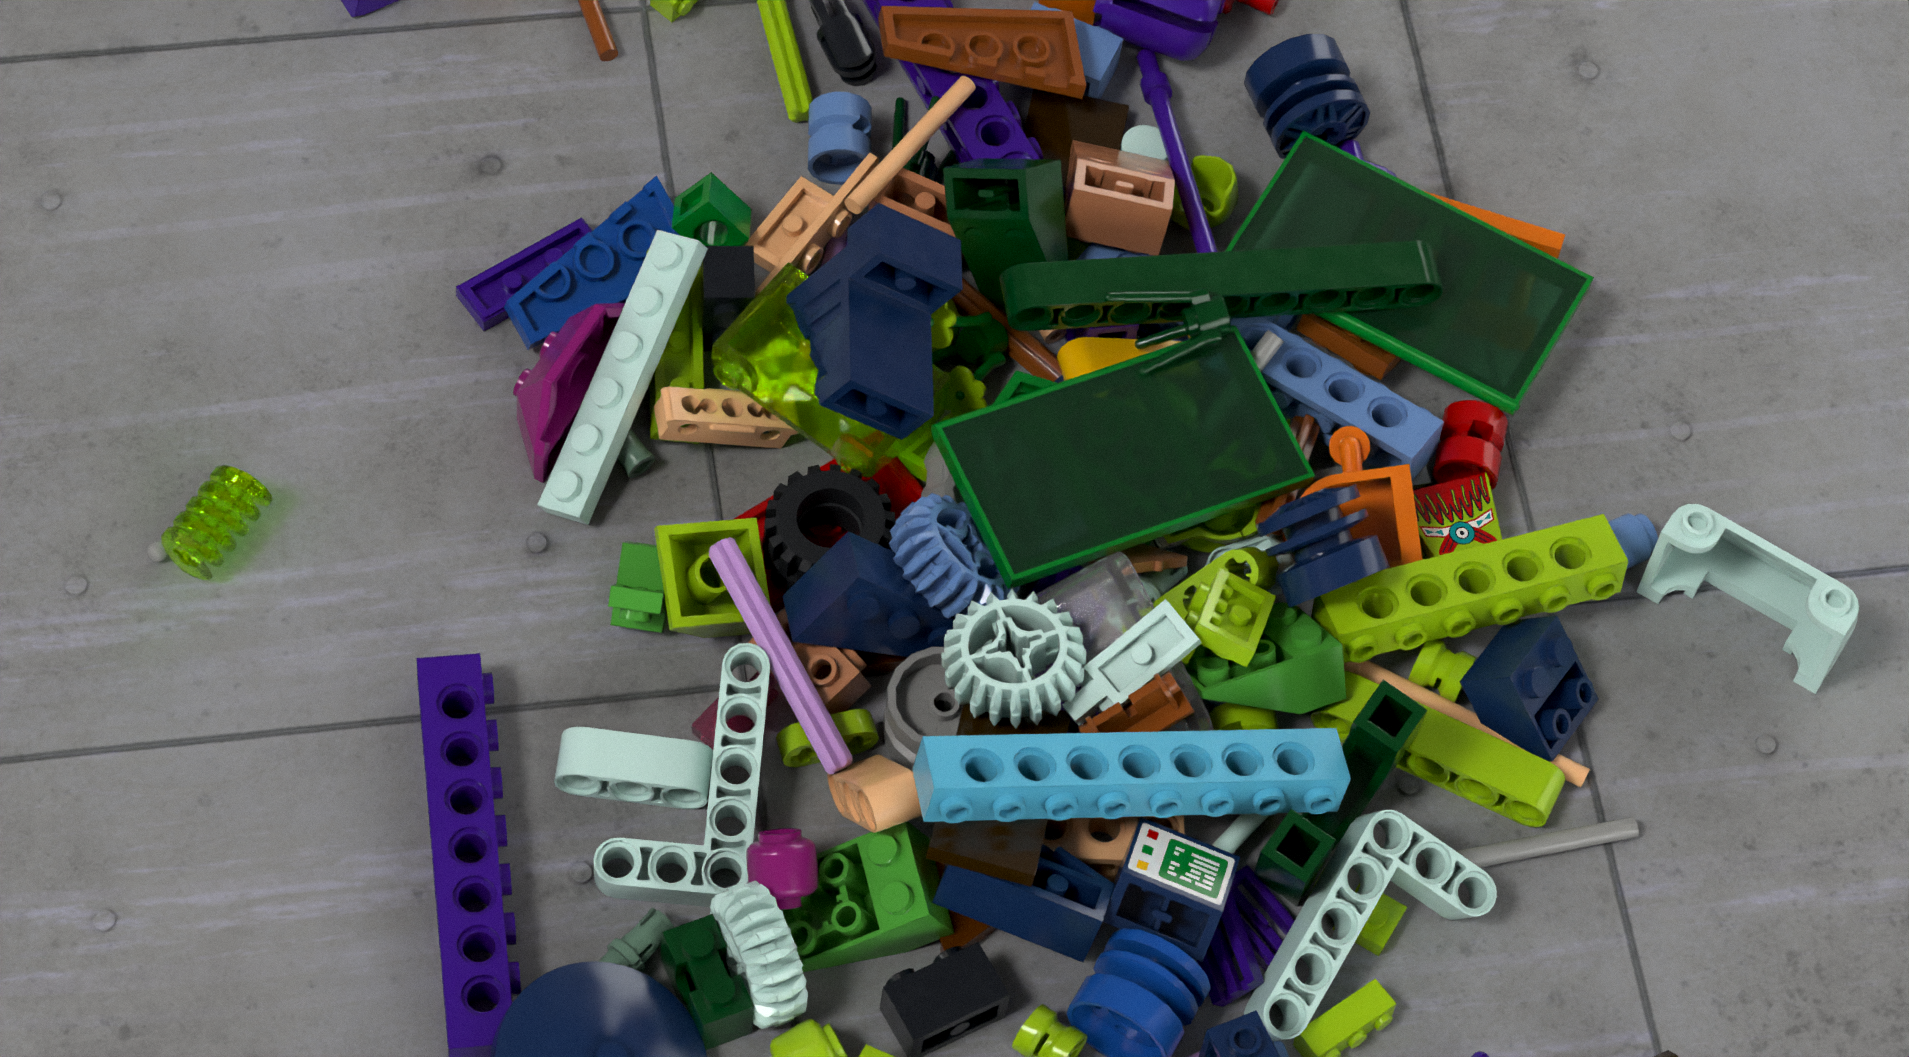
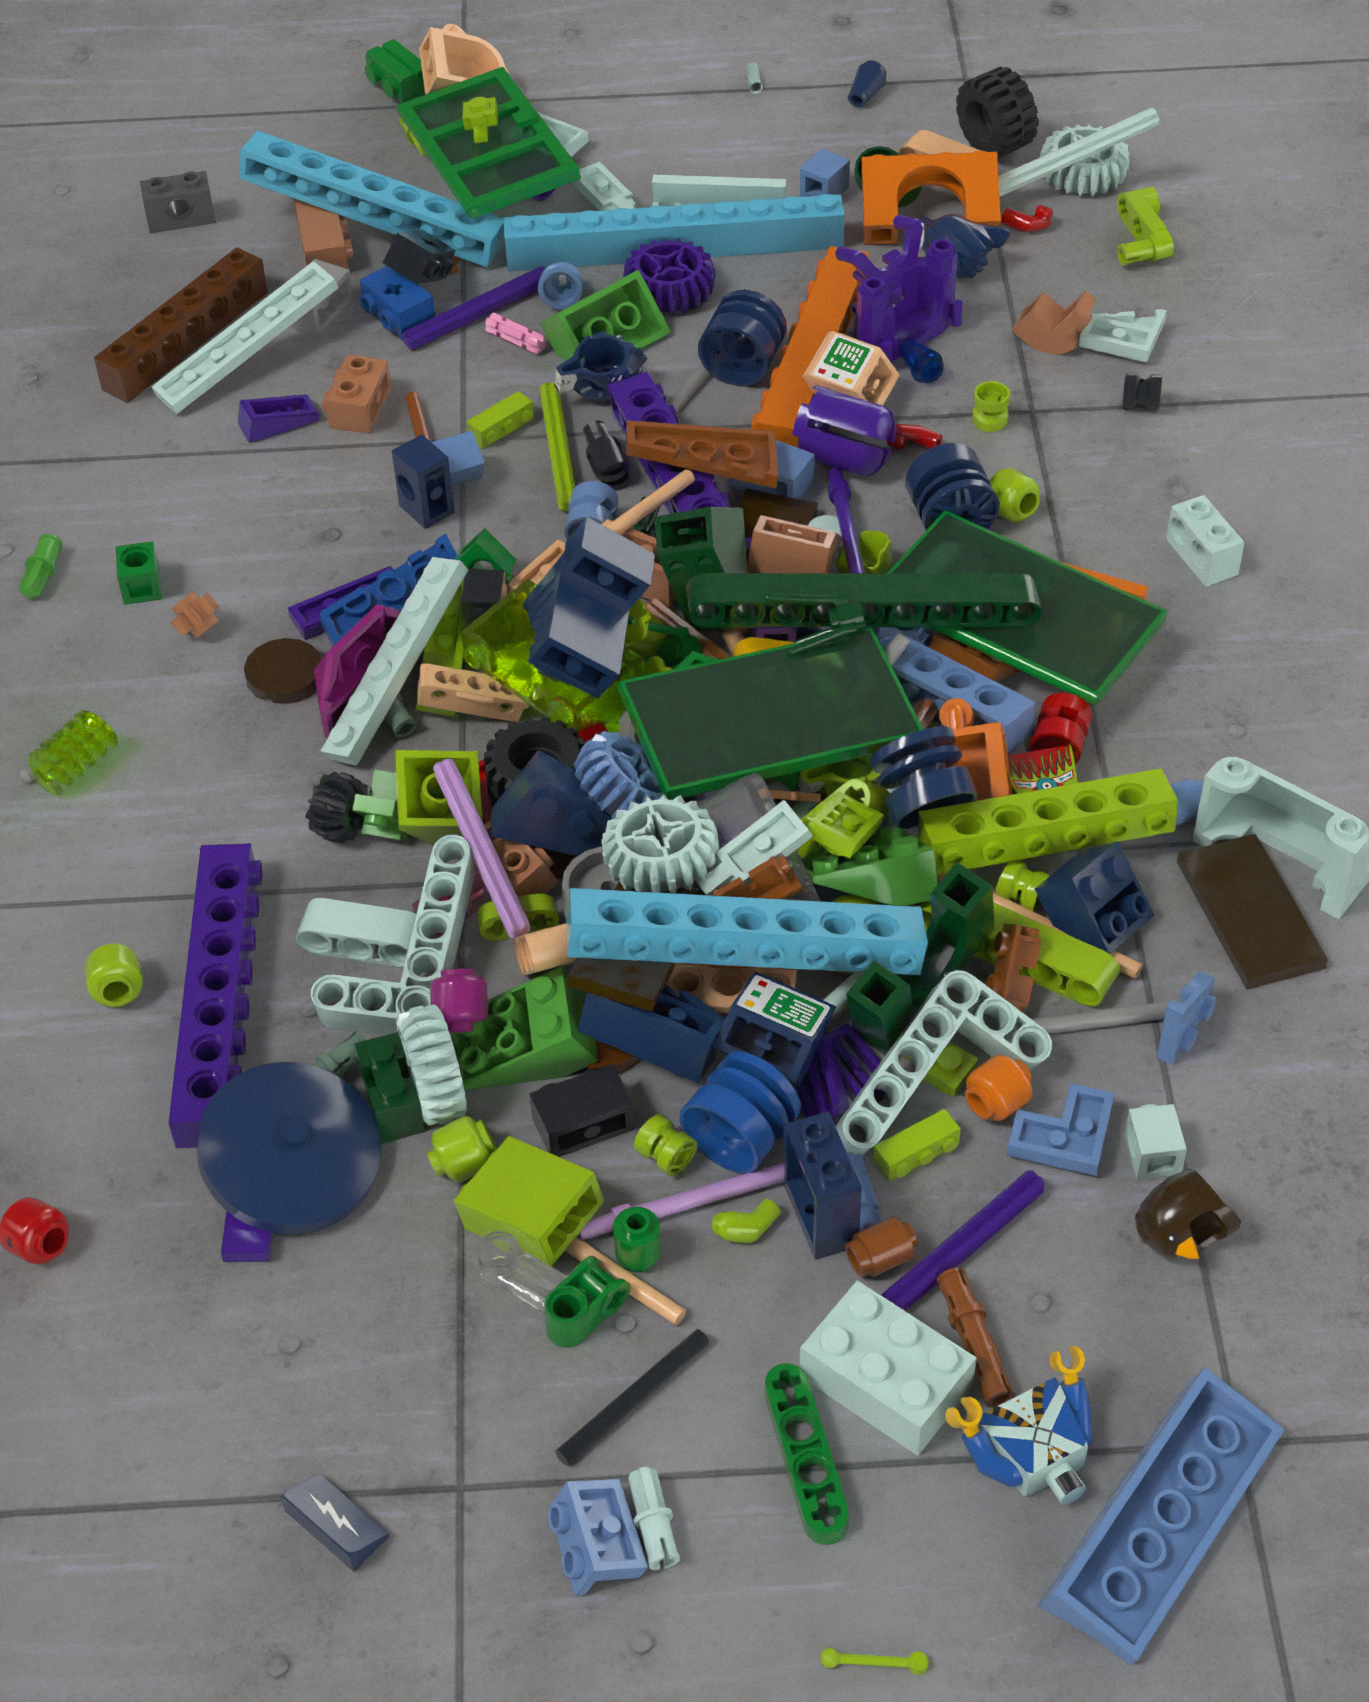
camera: 15 degrees right, 10 degrees down
(110, 230) = (40, 565): none -> bright green axle
(248, 256) = (138, 572): none -> green brick
(333, 843) = (113, 975): none -> lime head
(338, 304) = (194, 614): none -> nougat gear
(466, 382) = (282, 670): none -> dark brown tile
(579, 593) = (332, 806): none -> black gear
(612, 92) = (423, 481): none -> dark blue brick
(645, 52) = (463, 455): none -> medium blue brick
(1385, 88) = (1017, 494): none -> lime head
(1436, 948) = (998, 1088): none -> orange head
(1439, 768) = (1011, 953): none -> dark orange hinge
(1520, 1012) = (1067, 1142): none -> medium blue plate
(1621, 1006) = (1155, 1141): none -> light aqua brick
(1628, 156) = (1205, 540): none -> light aqua brick
(1642, 860) = (1181, 1018): none -> medium blue wing
(1713, 689) = (1251, 911): none -> dark brown tile

